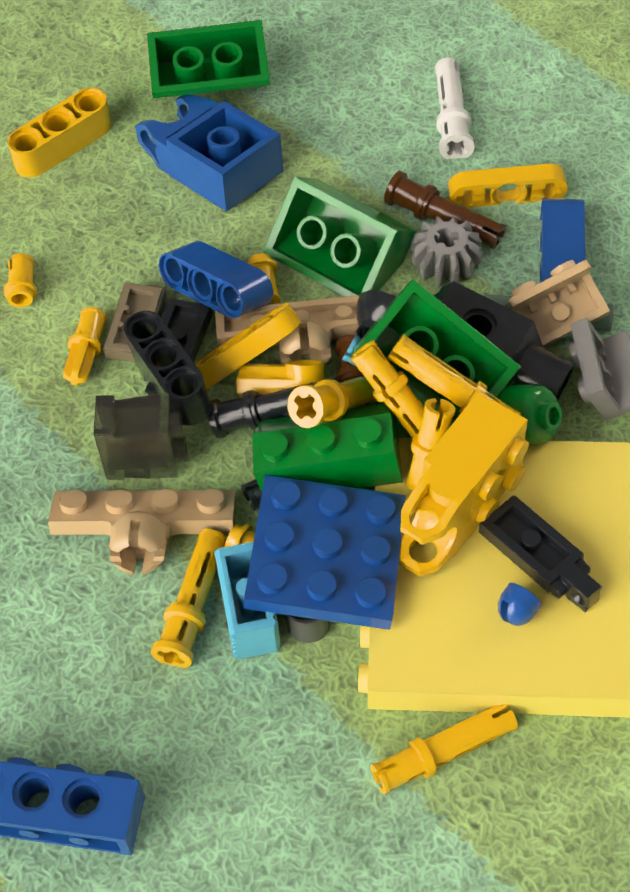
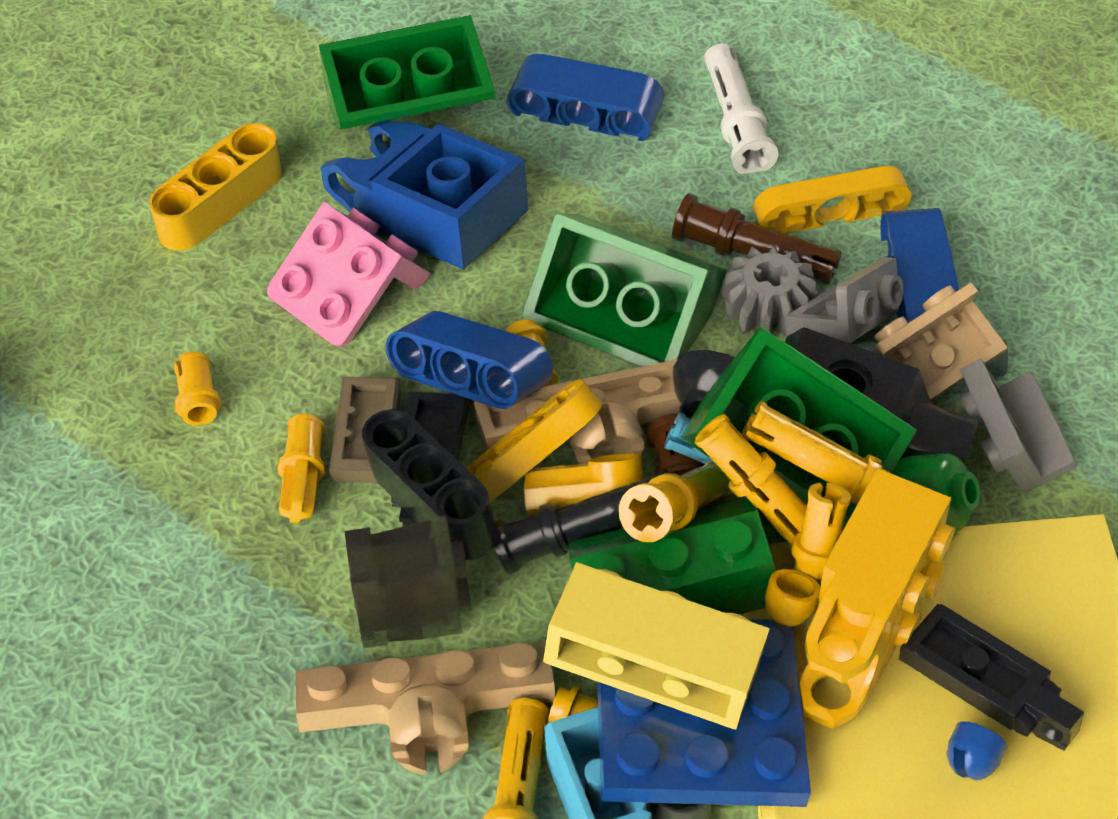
camera: 10 degrees left, 5 degrees down
(138, 204) = (341, 273): none -> bright pink bracket
(296, 502) = (655, 645): none -> light yellow brick
(341, 88) = (586, 95): none -> blue beam
(403, 477) = (791, 596): none -> yellow hinge
(501, 267) = (852, 305): none -> light grey bracket

